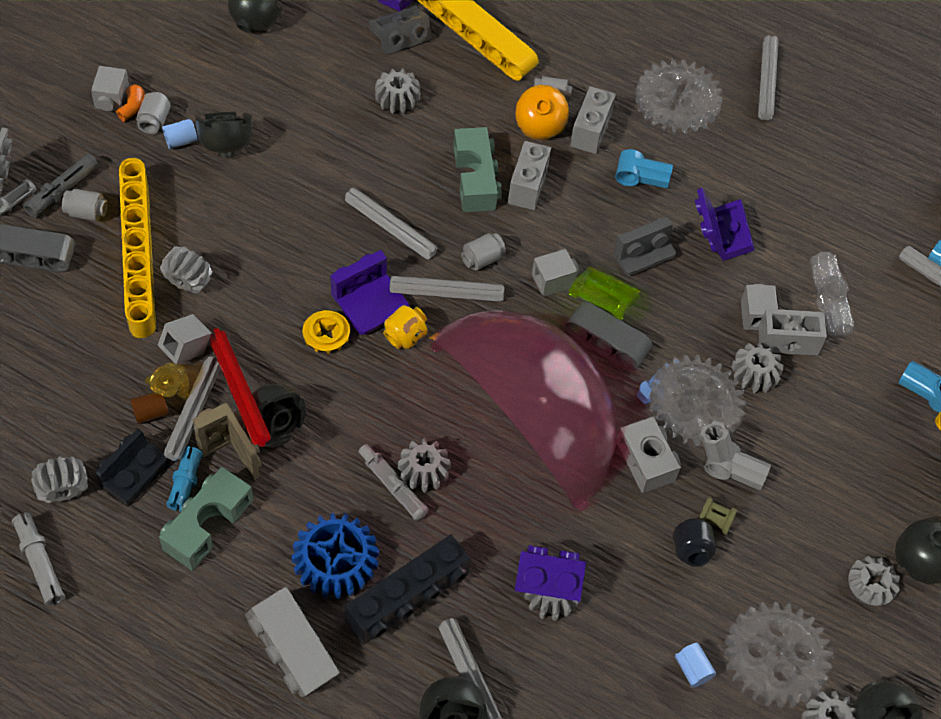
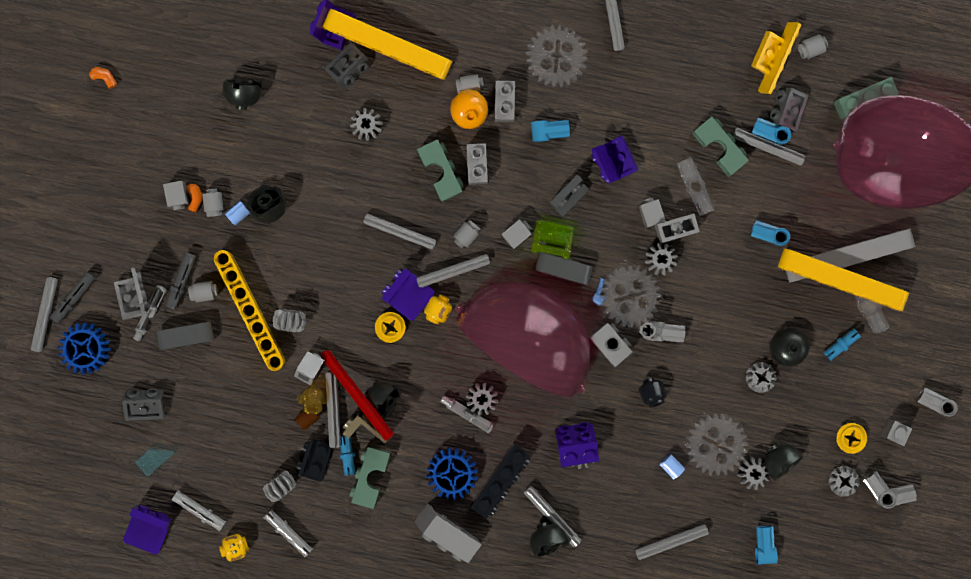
camera: 15 degrees left, 30 degrees up
(717, 515) = (661, 370): olive bush -> none
(871, 239) = (733, 157): none -> sand green arch

